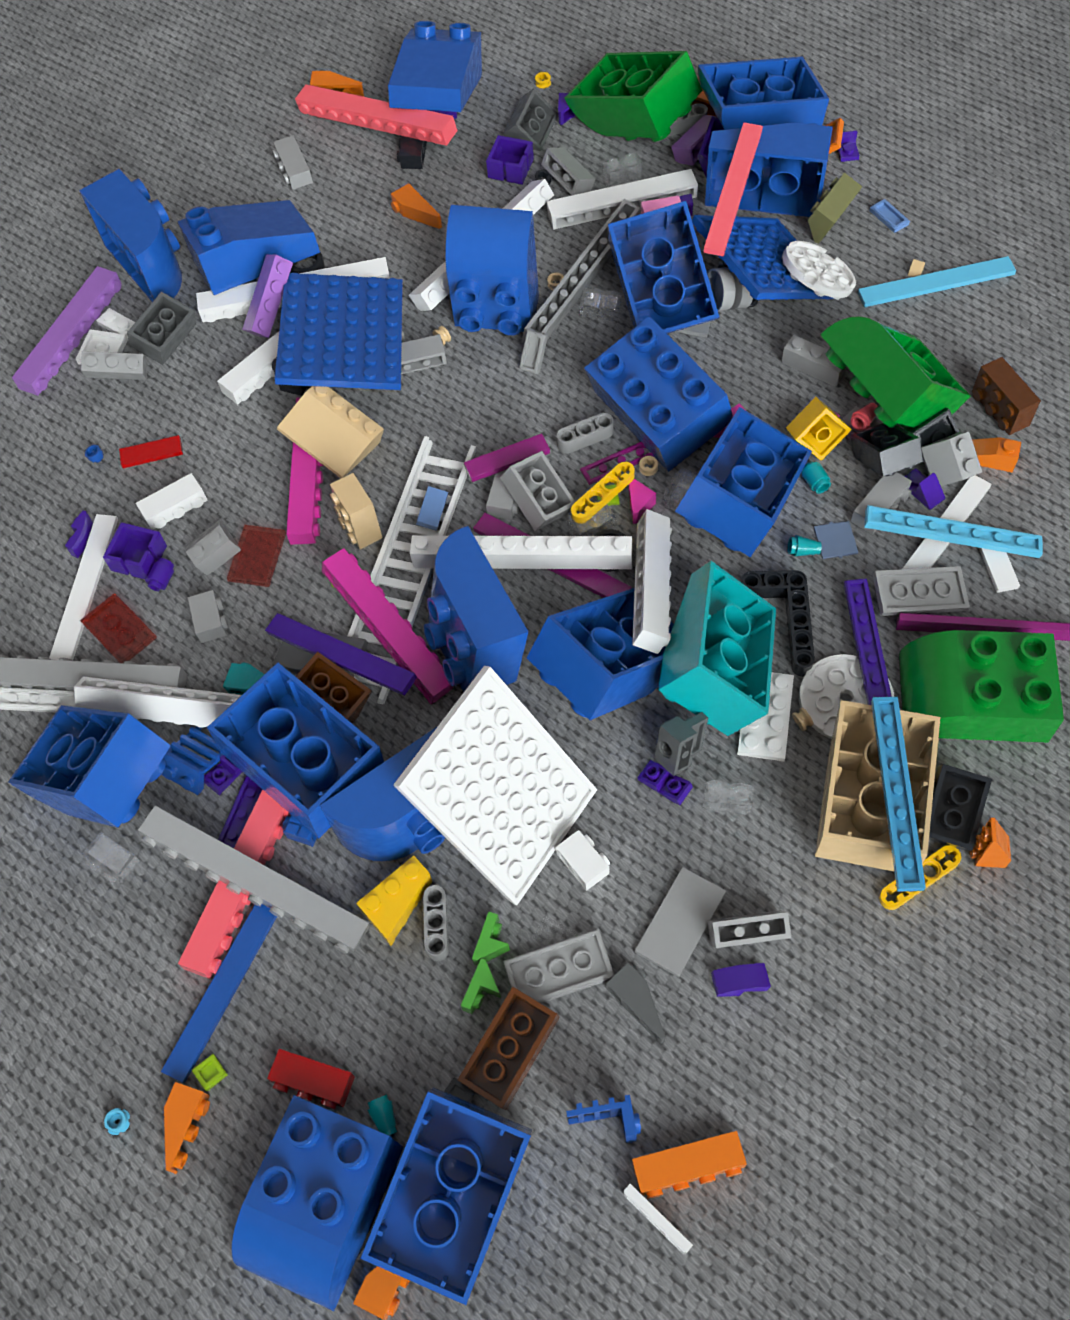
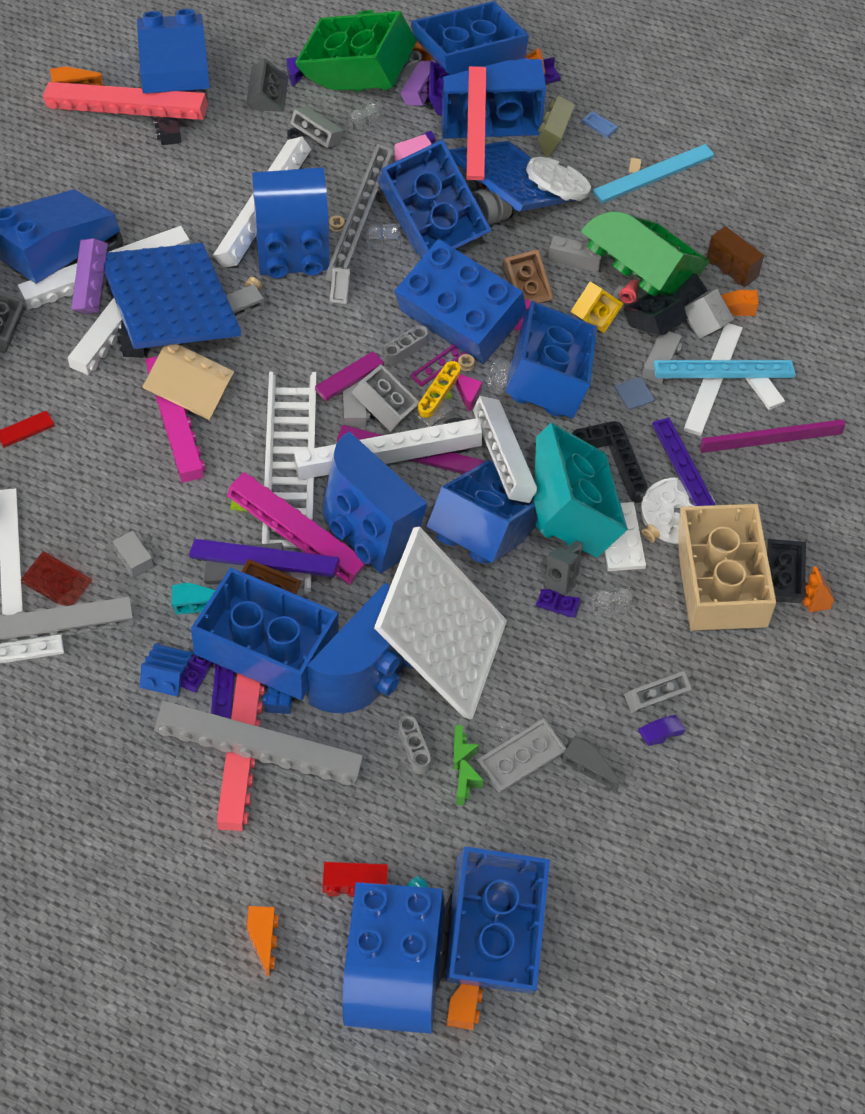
camera: 25 degrees left, 5 degrees down
(92, 764) = (86, 685): blue brick -> none
(110, 858) = (124, 759): clear brick -> none
(112, 1116) = (203, 946): medium azure plate -> none
(134, 550) = (48, 513): dark purple piece -> none
(153, 701) = (122, 629): white brick -> none
(160, 574) = (76, 528): dark purple brick -> none
(171, 502) = (63, 467): white brick -> none
(209, 1072) = (269, 896): lime tile -> none
(212, 548) = (116, 496): light grey slope -> none
(219, 994) = (255, 836): blue tile -> none
(257, 557) = (155, 497): clear red tile -> none
(291, 162) = (59, 154): light grey brick -> none
(355, 511) = (237, 442): tan brick -> none
(395, 898) = (375, 734): yellow wedge -> none
(414, 206) = (187, 177): orange slope -> none
(432, 508) = (297, 429): medium blue tile -> none
(509, 1048) = (505, 812): reddish brown brick -> none
(510, 159) = (262, 123): dark purple piece -> none
(543, 76) = (264, 52): yellow bush -> none
(583, 859) = (514, 672): white brick -> none
(603, 202) = (363, 146): white brick -> none
(630, 1120) = (601, 838): blue plate -> none
(657, 1219) = (652, 906): white tile -> none
(680, 922) = (603, 701): light grey tile -> none
(689, 1163) = (663, 864): orange brick -> none
(749, 379) = (528, 275): none -> medium nougat slope
(803, 546) = (609, 403): teal cone -> none
(816, 477) = (606, 347): teal brick -> none
(898, 795) = (743, 563): dark azure plate -> none
(920, 590) = (712, 418): light grey plate -> none
(925, 489) = (693, 341): dark purple slope -> none
(939, 855) = (773, 630): yellow beam -> none
(984, 684) = (783, 474): green brick -> none

